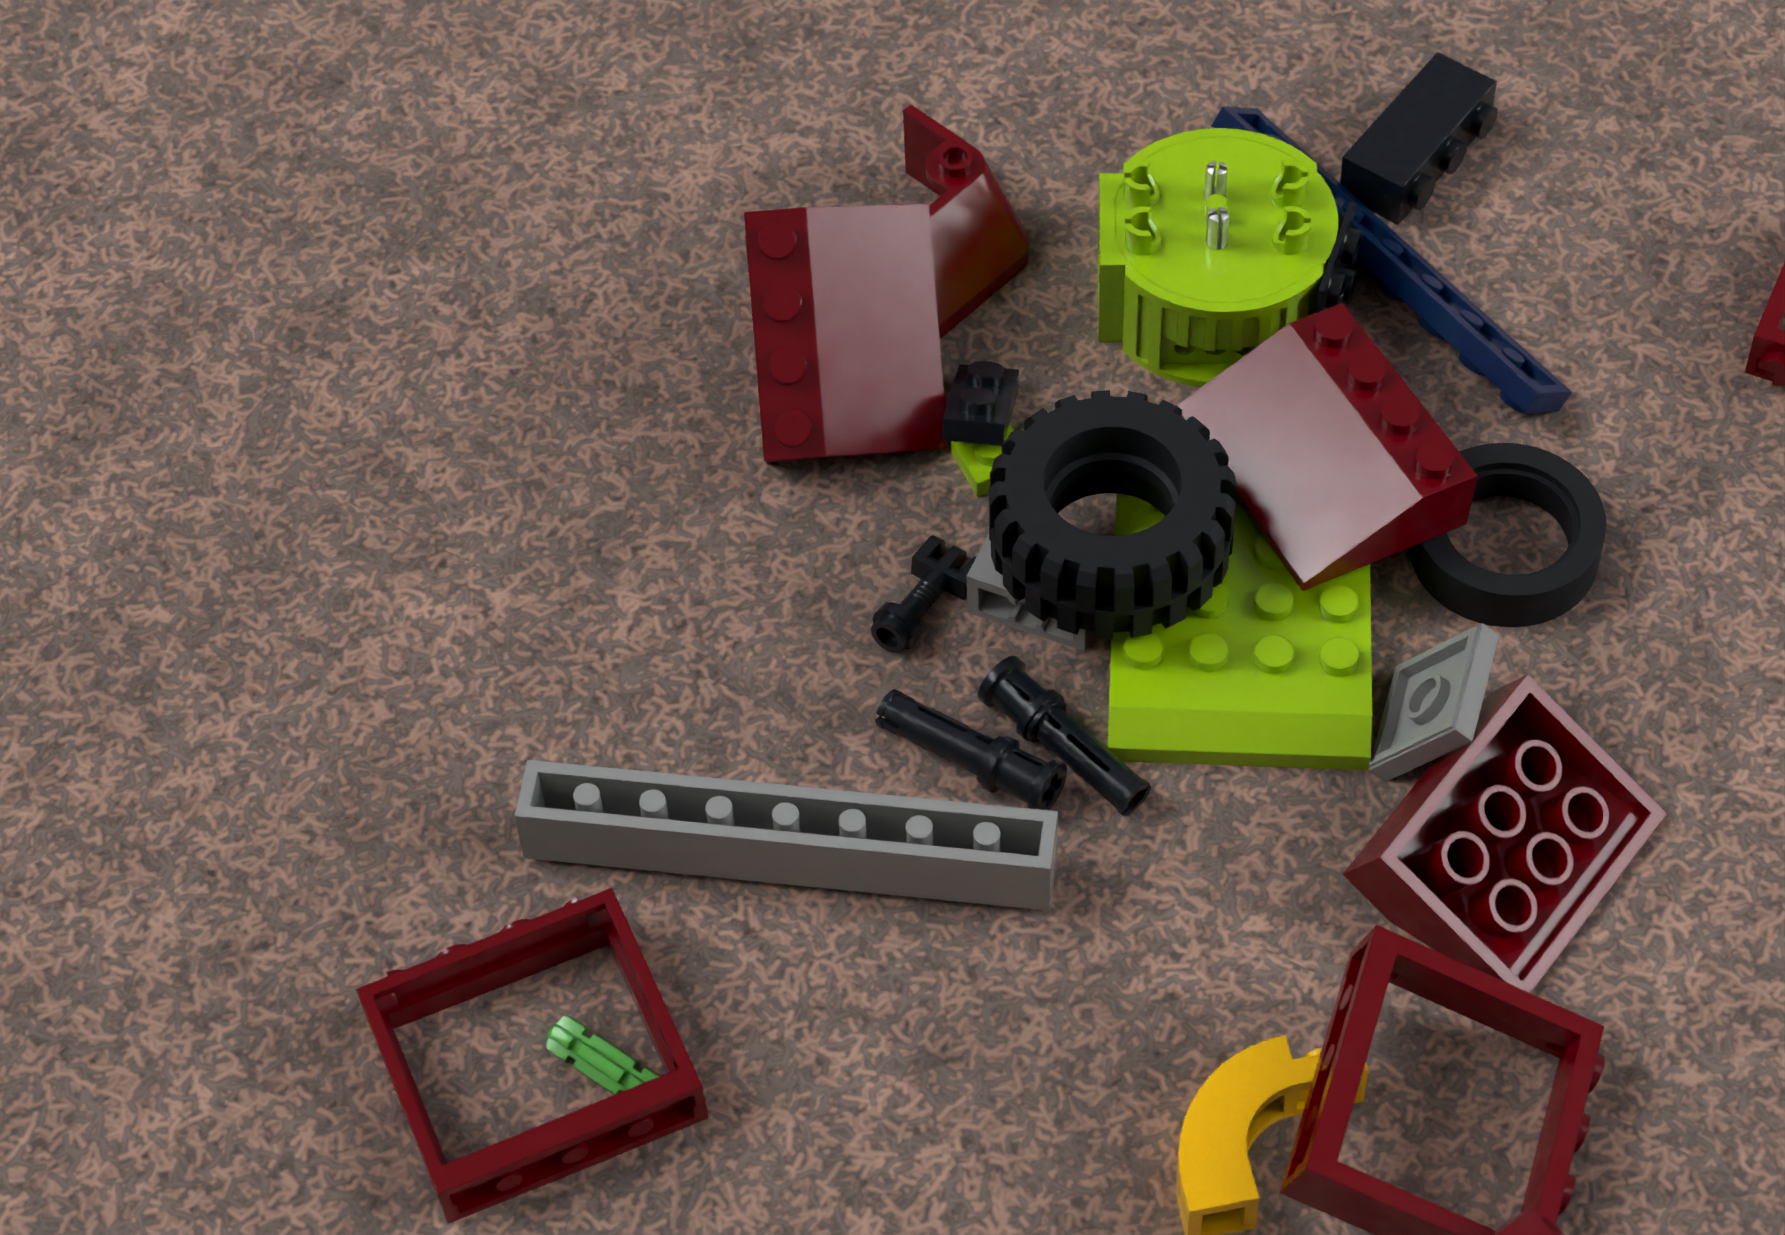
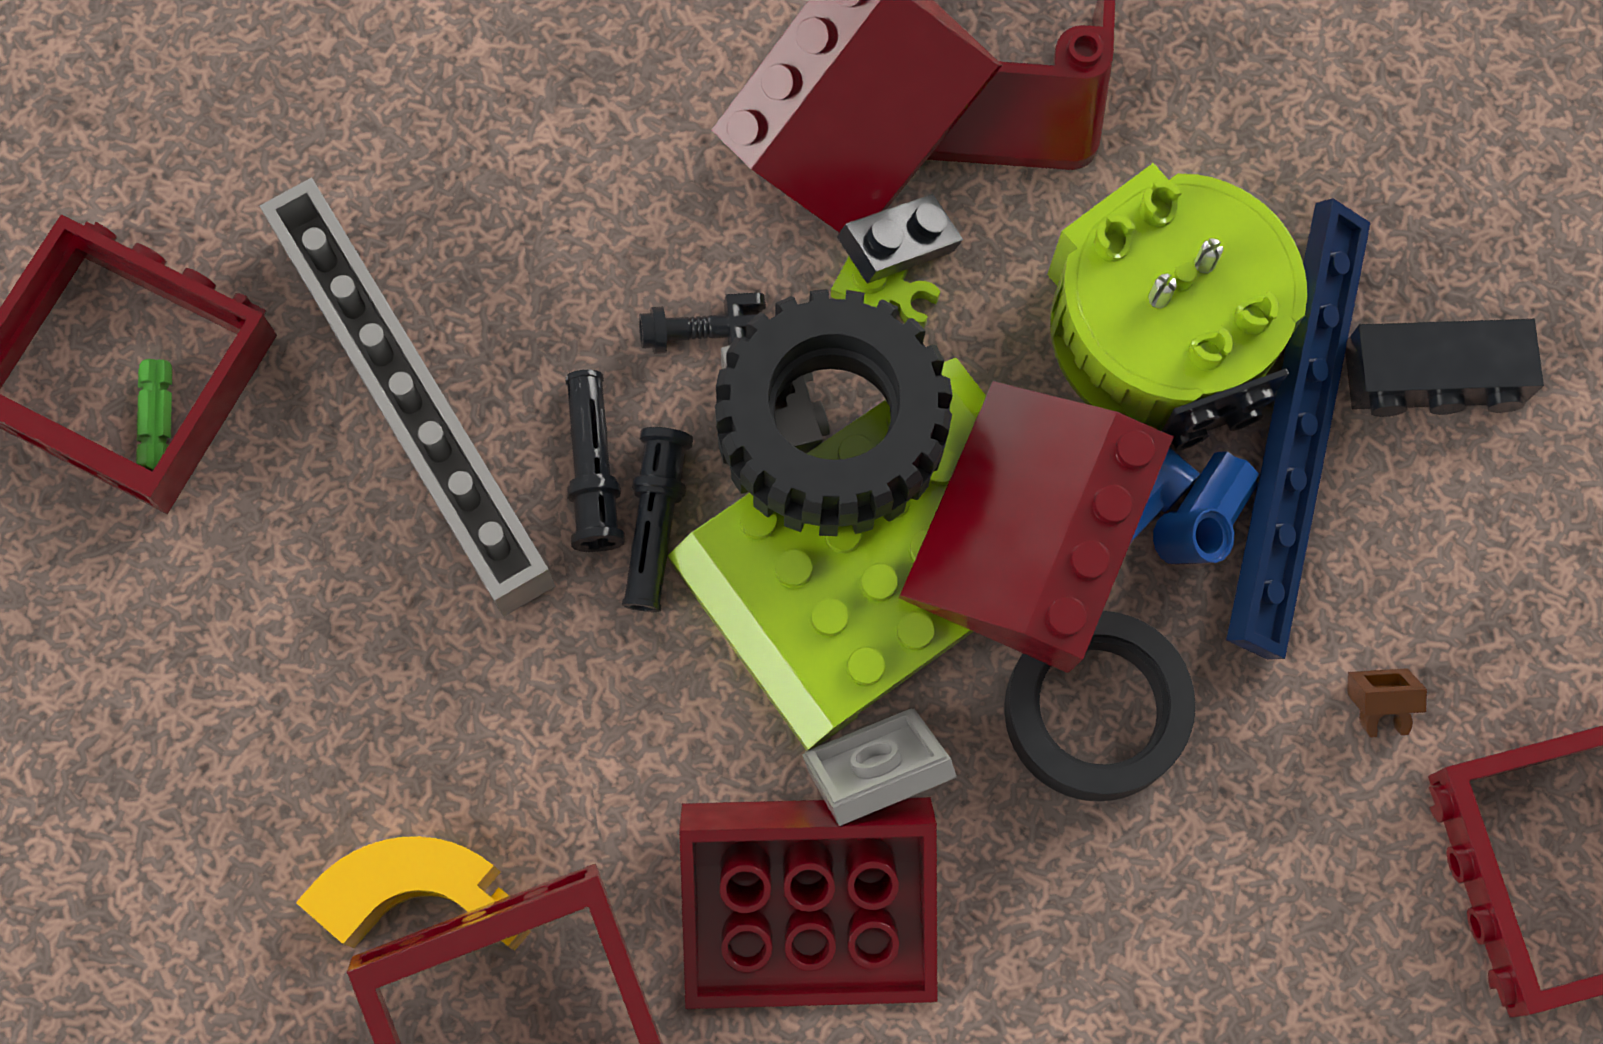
camera: 45 degrees right, 20 degrees up
(1419, 361) = (1204, 522): none -> blue piece
(1659, 346) = (1386, 694): none -> reddish brown tile

